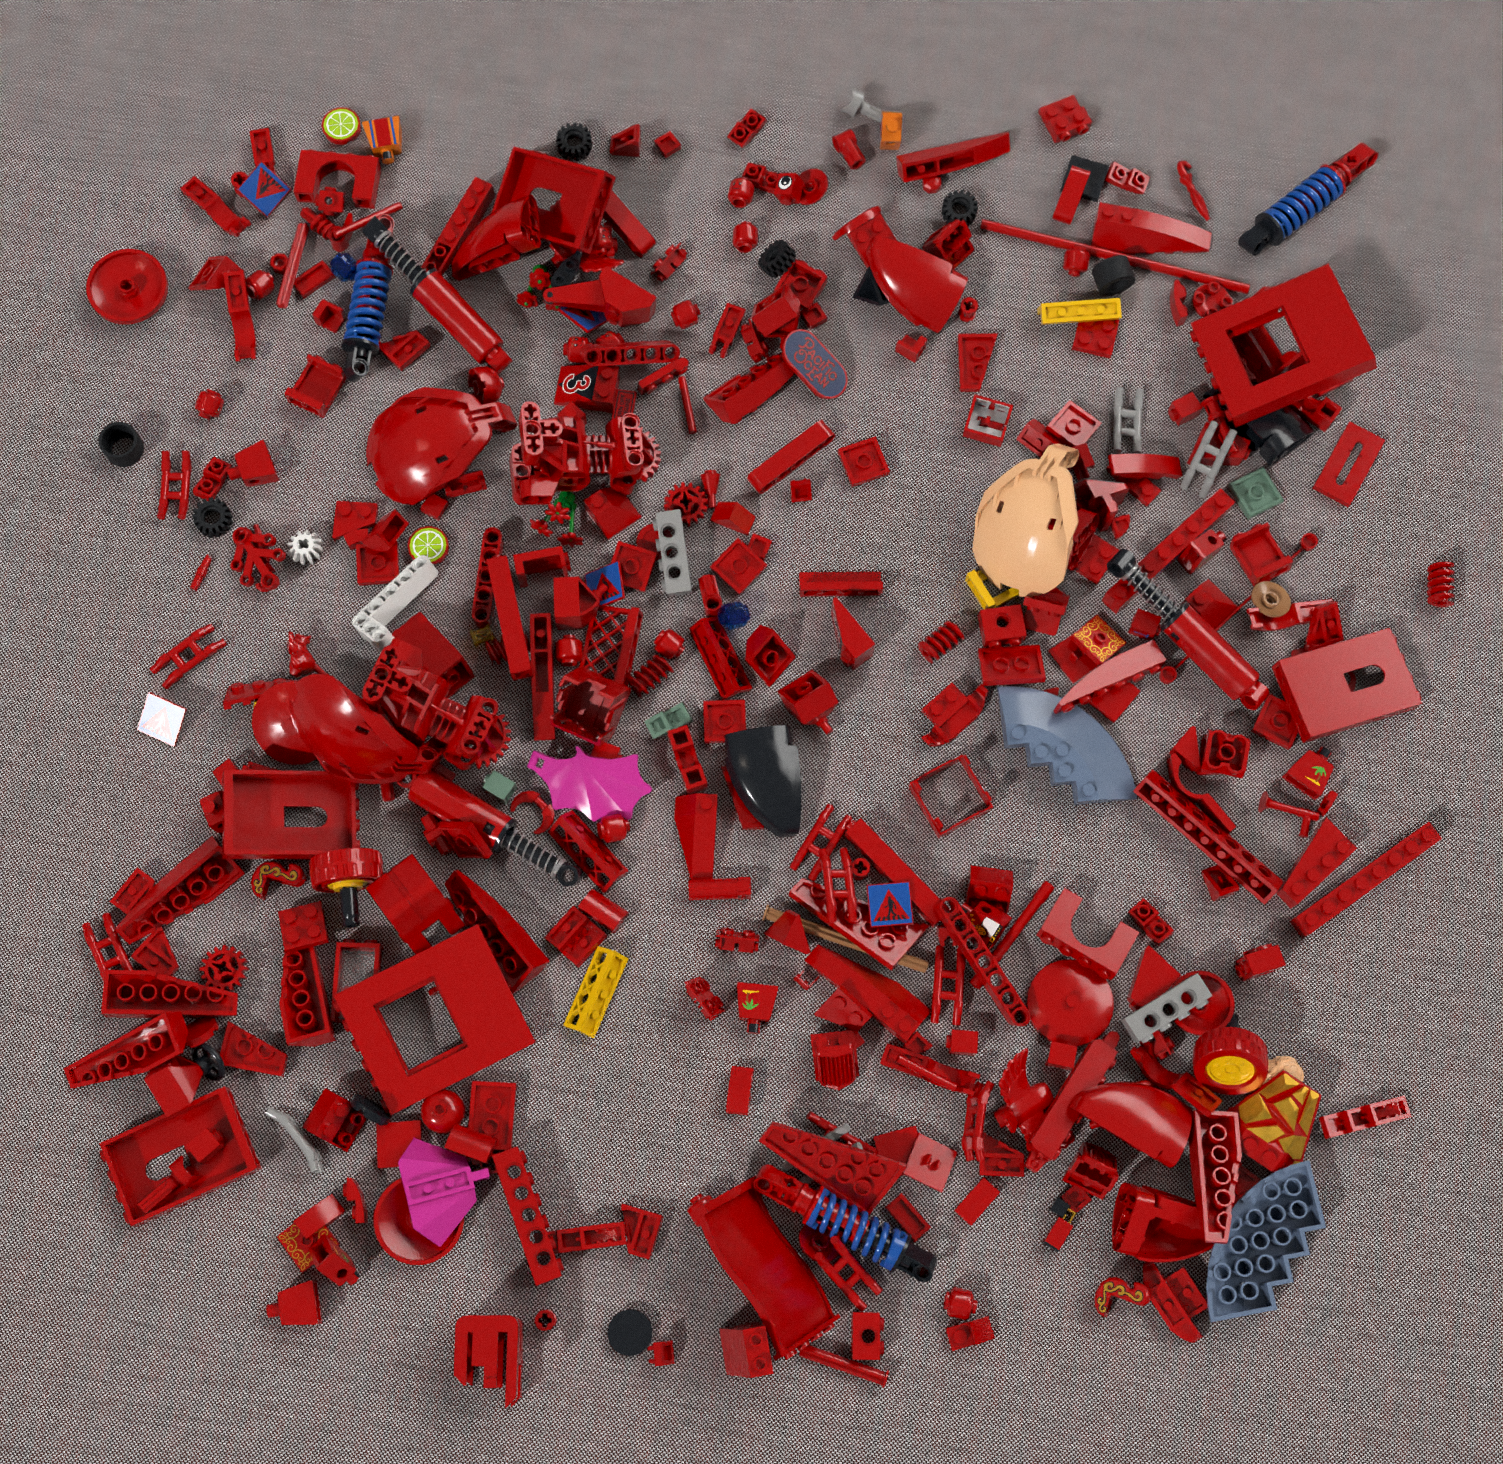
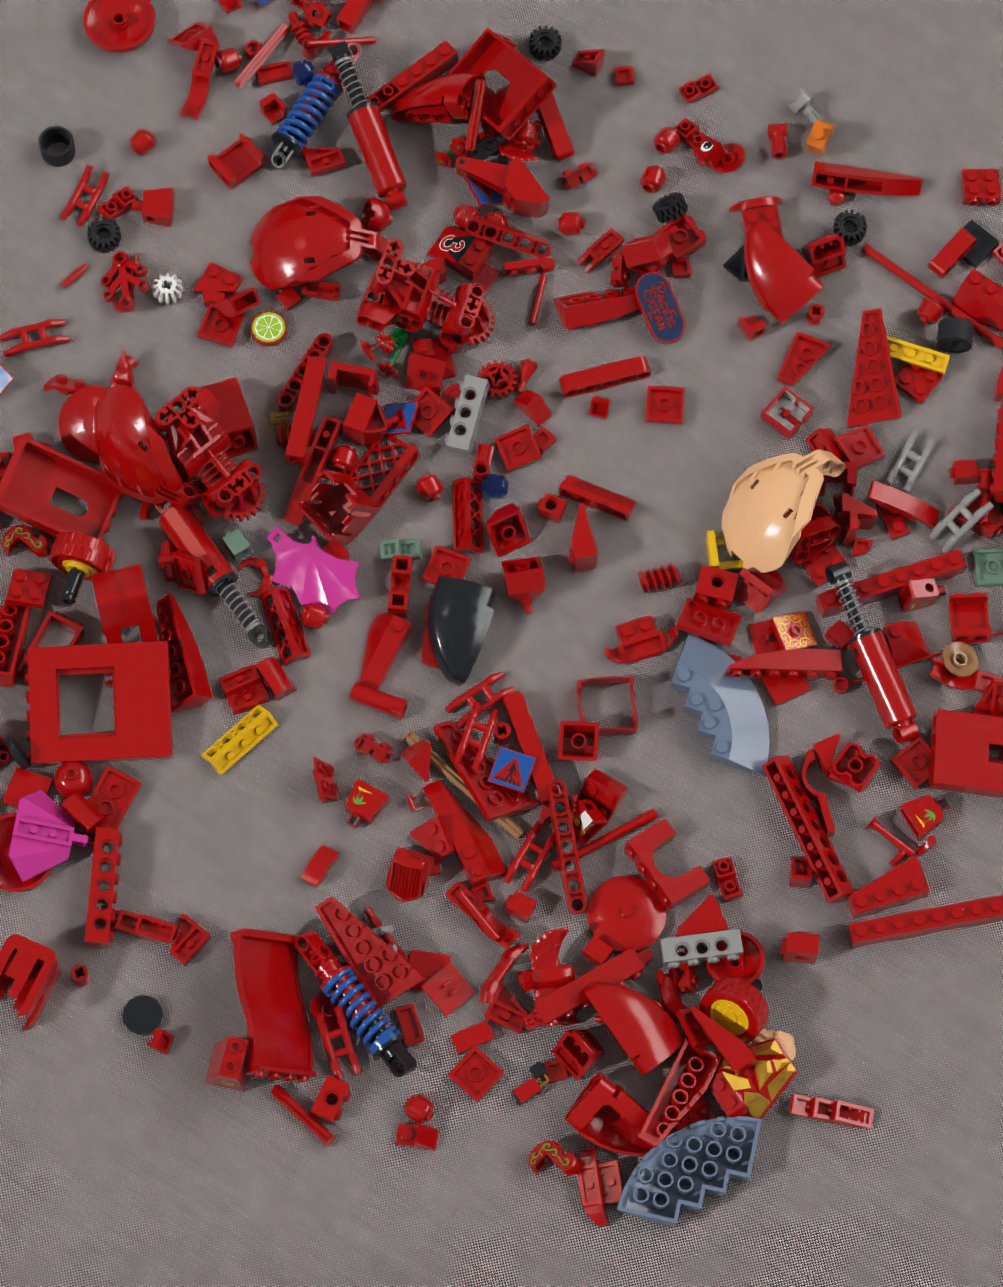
camera: 25 degrees right, 5 degrees down
(391, 600) = (220, 358): white beam -> none
(543, 240) = (475, 115): none -> red axle
(609, 527) = (424, 372): none -> red piece
(649, 675) = (401, 505): red piece -> none
(807, 607) = (553, 515): none -> red brick
(942, 846) = (578, 740): none -> red slope
(999, 1239) = (476, 1074): none -> red plate
(1058, 356) = (873, 385): none -> red wing
(1251, 1103) = (731, 1048): none -> red slope

